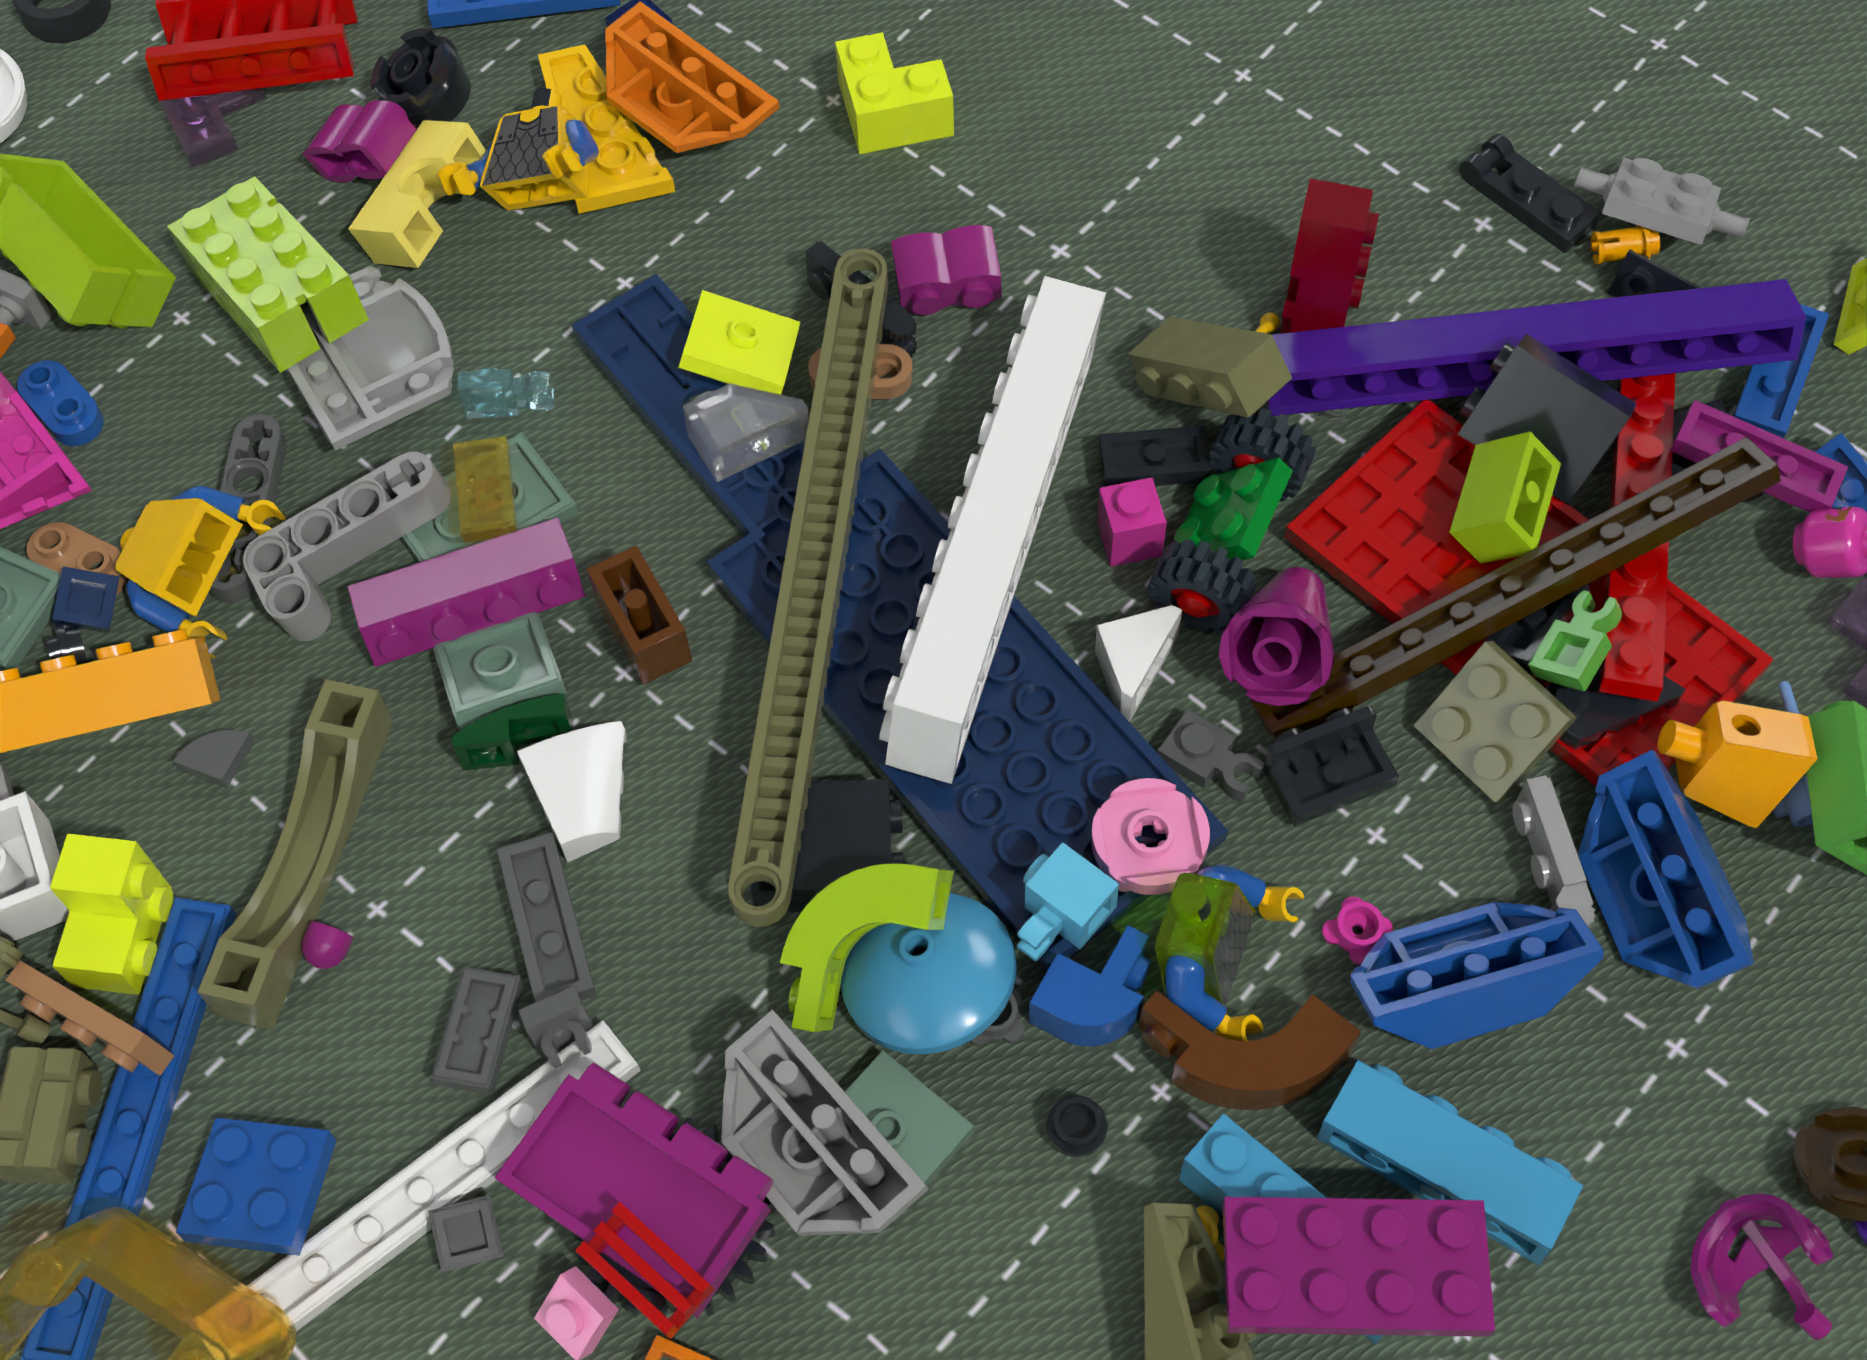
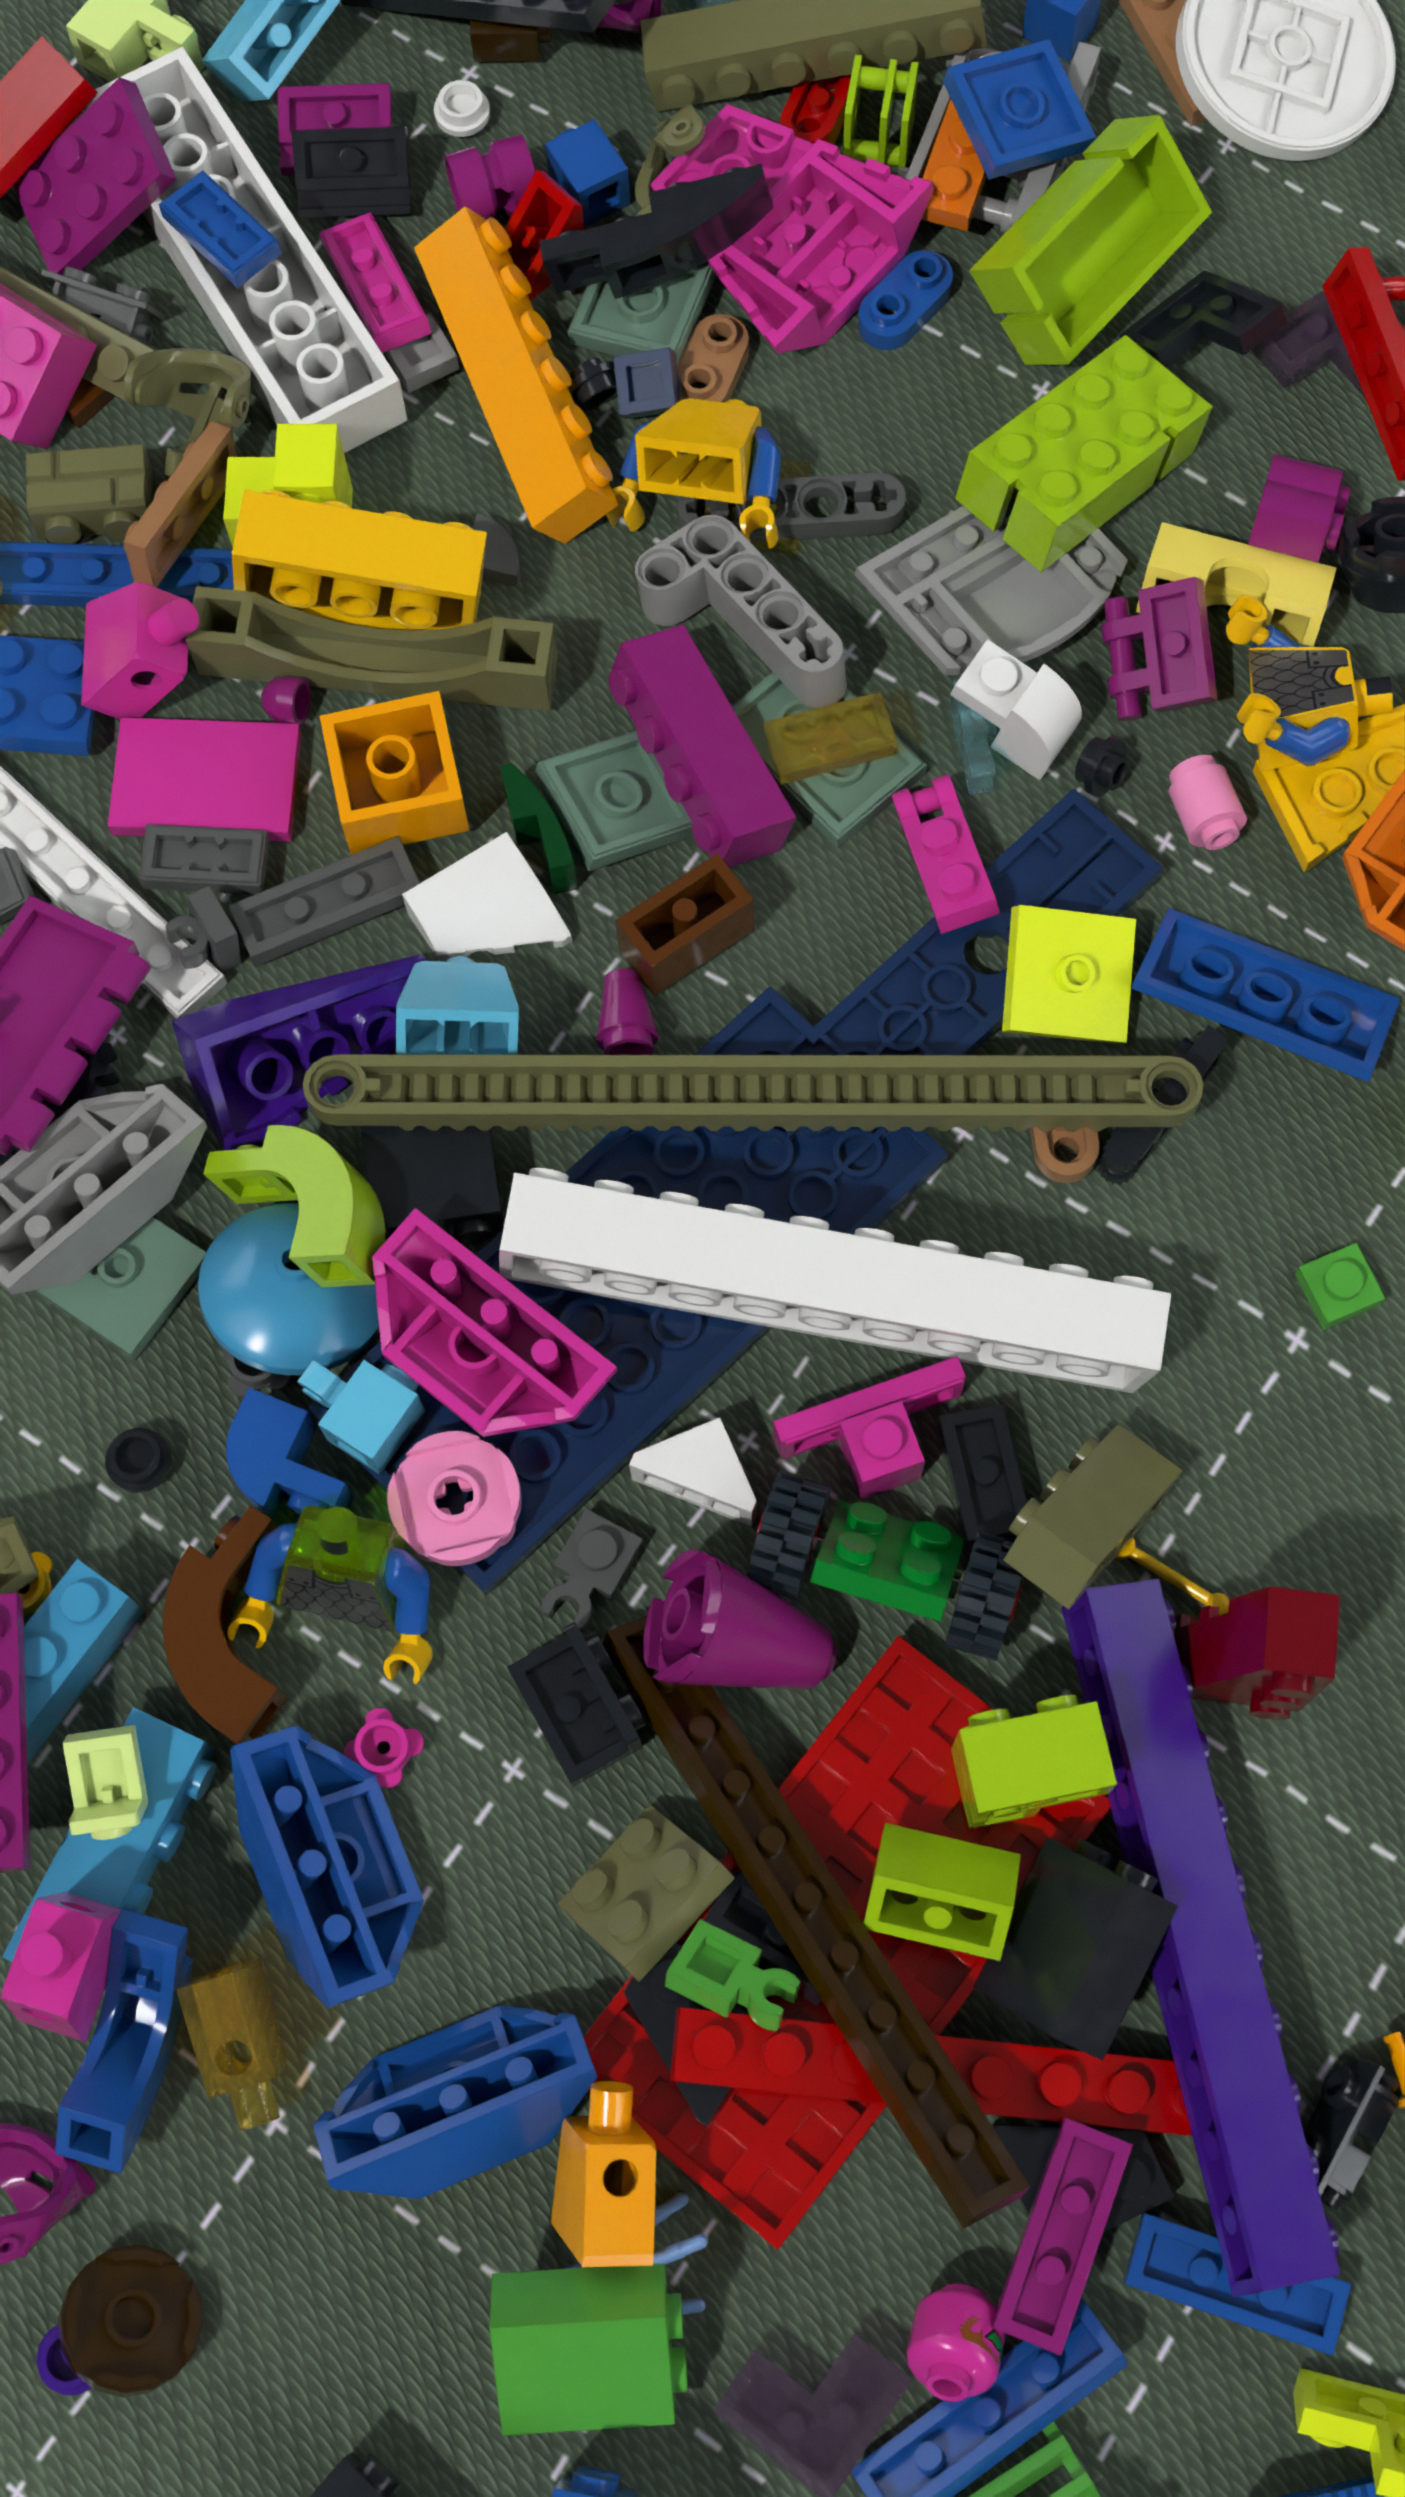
camera: 85 degrees right, 10 degrees up
(153, 180) = (1207, 310): none -> black plate
(216, 841) = (358, 563): none -> yellow brick
(240, 1066) = (134, 649): none -> dark pink torso
(386, 1030) = (205, 775): none -> dark pink tile
(434, 841) = (394, 772): none -> light orange brick
(467, 232) = (1175, 644): none -> magenta plate
(494, 340) = (1029, 707): none -> white brick
(554, 306) = (1102, 765): none -> black plate
(603, 241) = (1206, 802): none -> bright pink brick
(611, 421) = (945, 855): none -> dark pink plate
(686, 971) = (255, 1049): none -> dark purple wedge
(694, 794) = (457, 1010): none -> medium azure torso
(713, 679) = (625, 1016): none -> magenta cone
(743, 427) = (933, 983): clear slope -> none
(777, 223) = (1267, 994): none -> blue slope
(947, 269) = (1225, 1199): magenta brick -> none
(1016, 786) = (478, 1336): none -> dark pink wedge
(1023, 214) = (1339, 1286): none -> bright green plate
(1093, 530) = (916, 1390): none -> dark pink tile
(1403, 1132) = (105, 1782): none -> yellowish green bracket
(1416, 421) = (1031, 1761): none -> lime brick
(1555, 859) = (477, 1971): light grey hinge -> none
(1568, 1167) = (61, 1964): none -> dark pink torso
(1611, 1053) = (228, 2008): none -> clear yellow torso
(1623, 1155) = (130, 2044): none -> blue arch

